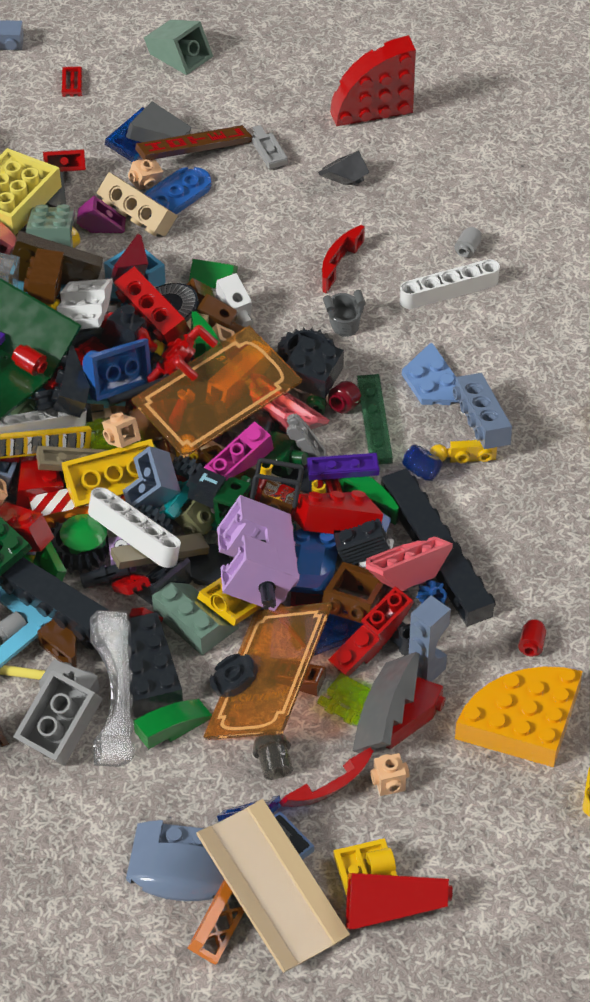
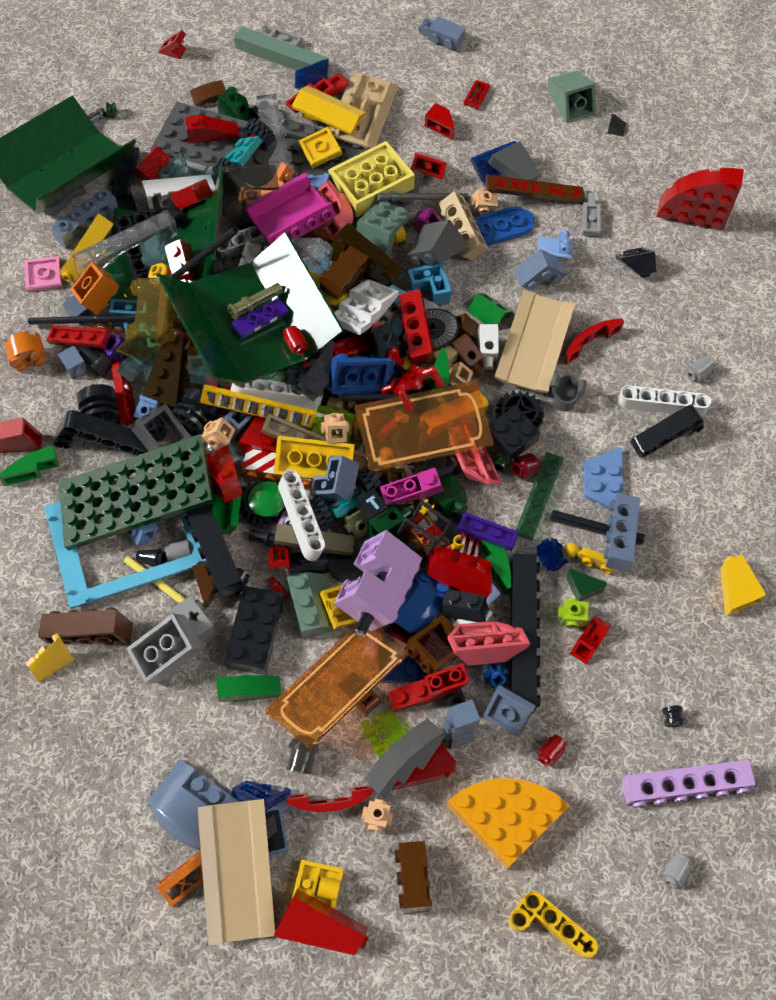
camera: 25 degrees right, 15 degrees up
(48, 118) = (440, 121): none -> red slope
(49, 197) = (394, 196): none -> dark grey bar
(110, 637) = (195, 684): clear arch -> none
(119, 225) = (436, 244): none -> dark grey slope
(132, 256) = (421, 281): dark red slope -> none
(233, 675) = (311, 671): black tile -> none
(242, 58) = (616, 126): none -> pearl dark grey slope
(244, 212) = (539, 268): none -> sand blue brick
(255, 185) = (559, 246): none -> light blue hinge
(283, 280) = (534, 342): none -> tan hinge
(304, 437) = (472, 495): light grey hinge -> none
(434, 426) = (587, 524): none -> black axle
(464, 812) = (413, 877): none -> reddish brown wedge
(469, 618) = (509, 711): none -> sand blue tile
(472, 478) = (583, 585): none -> dark green slope
(478, 506) = (573, 613): none -> lime brick
(481, 292) = (667, 431): none -> black beam
(509, 524) = (590, 639): none -> red slope

